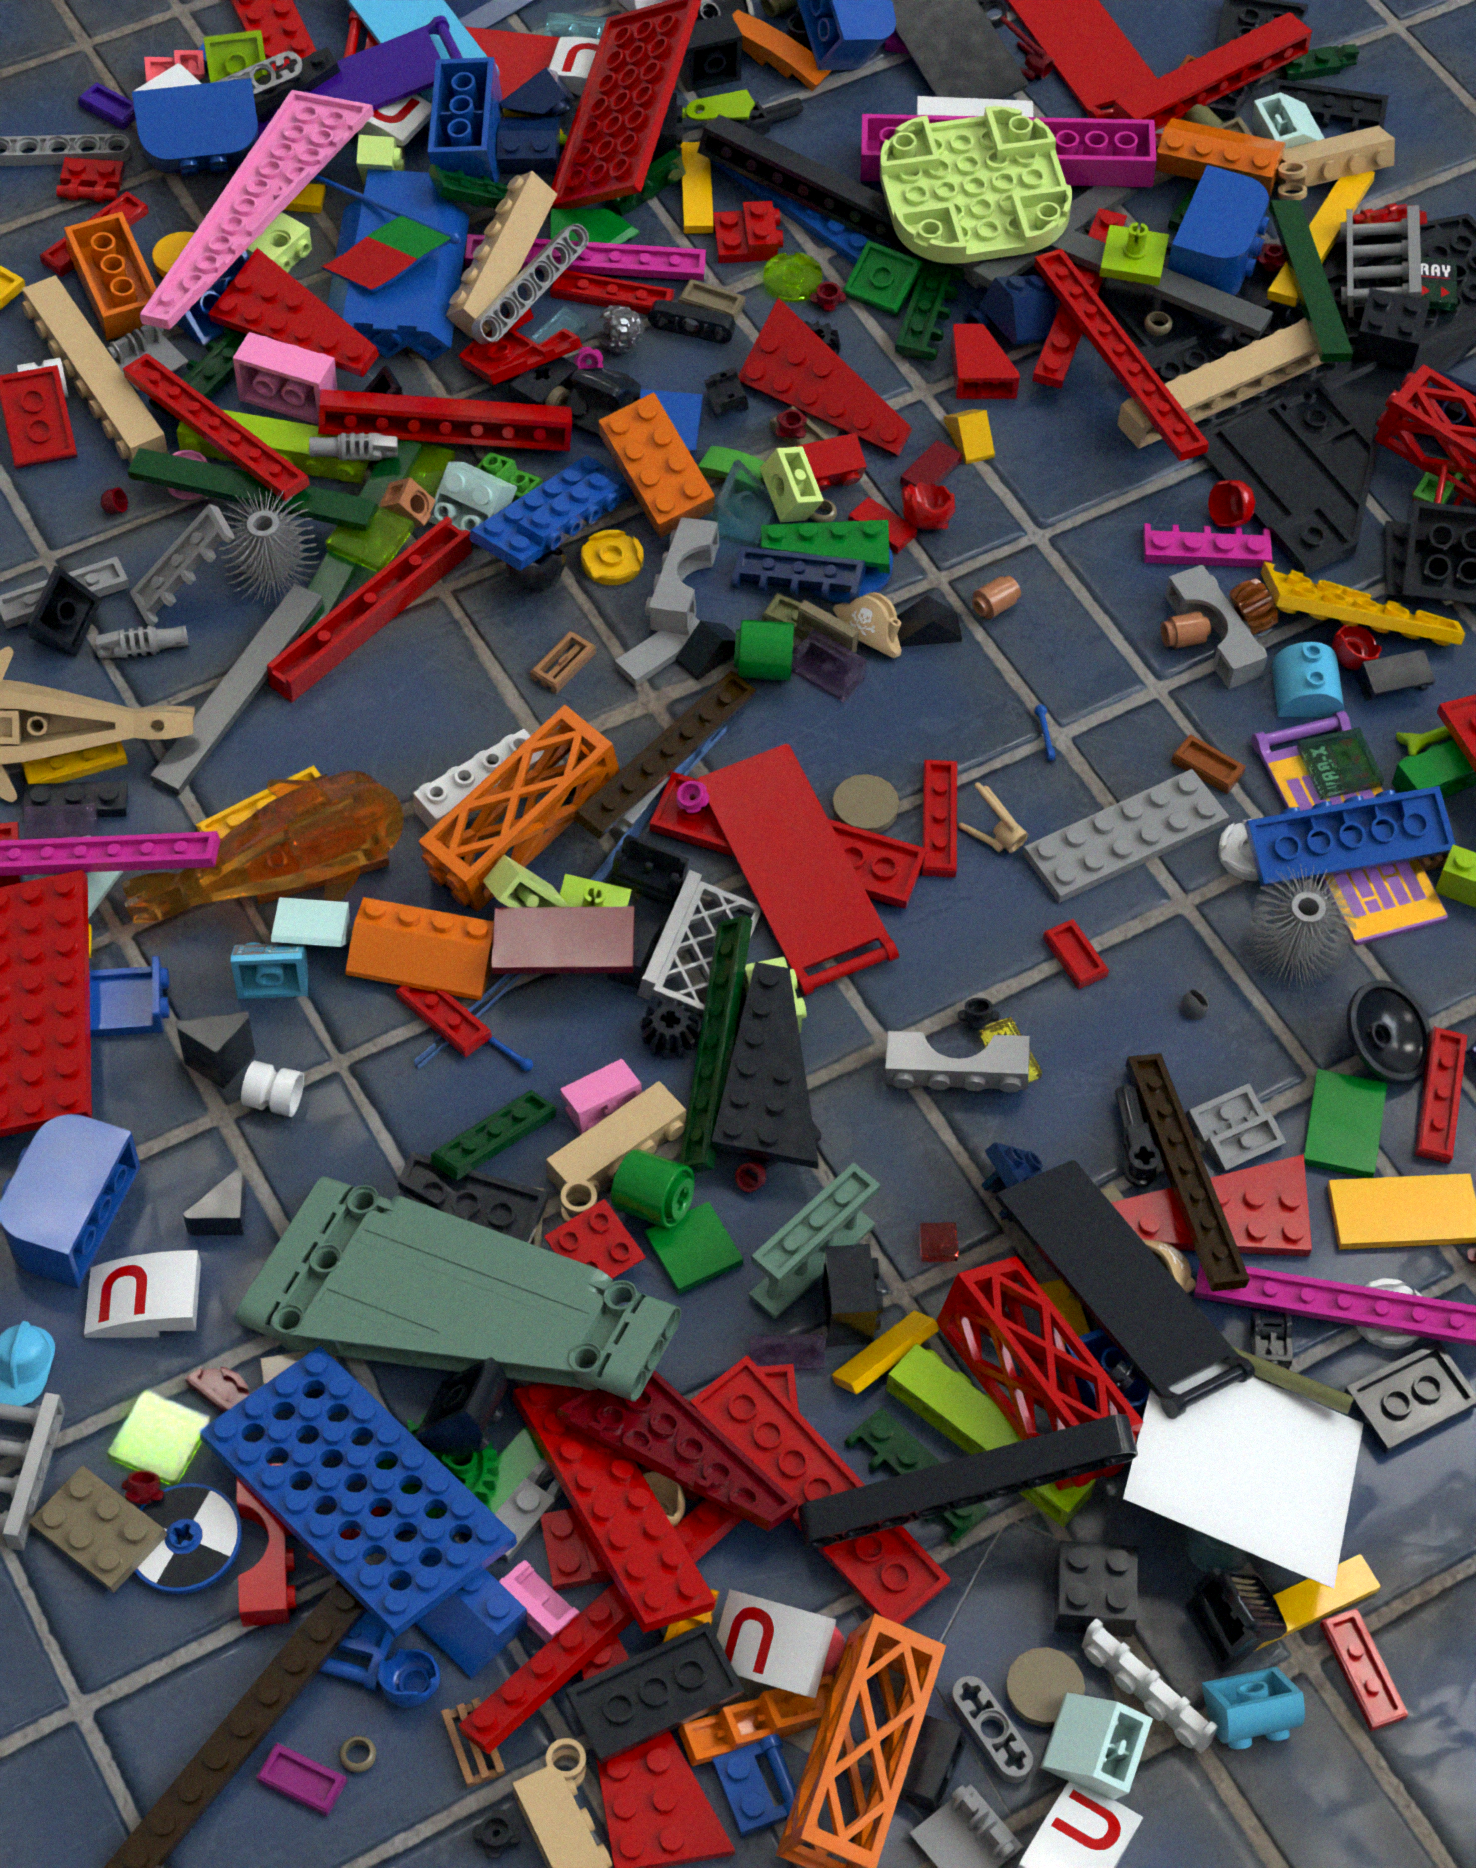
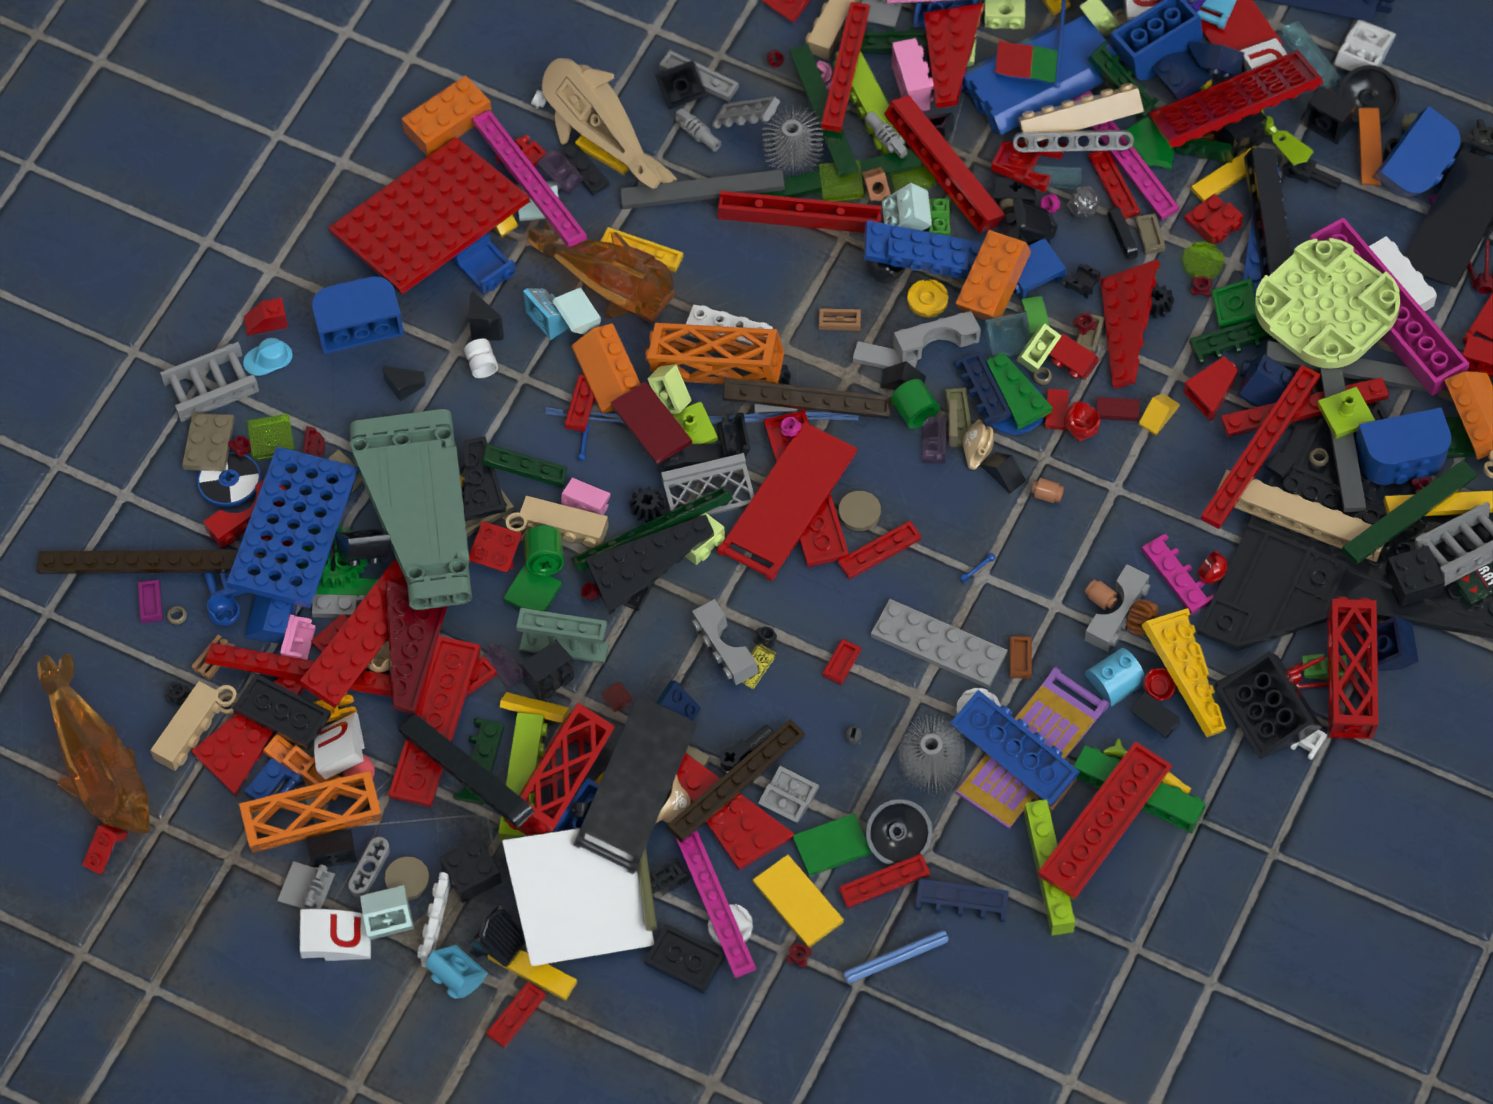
camera: 60 degrees right, 5 degrees up
(143, 1295) = (335, 381): white slope -> none
(1007, 831) = (891, 587): tan plant -> none
(1340, 763) = (1069, 719): clear green tile -> none

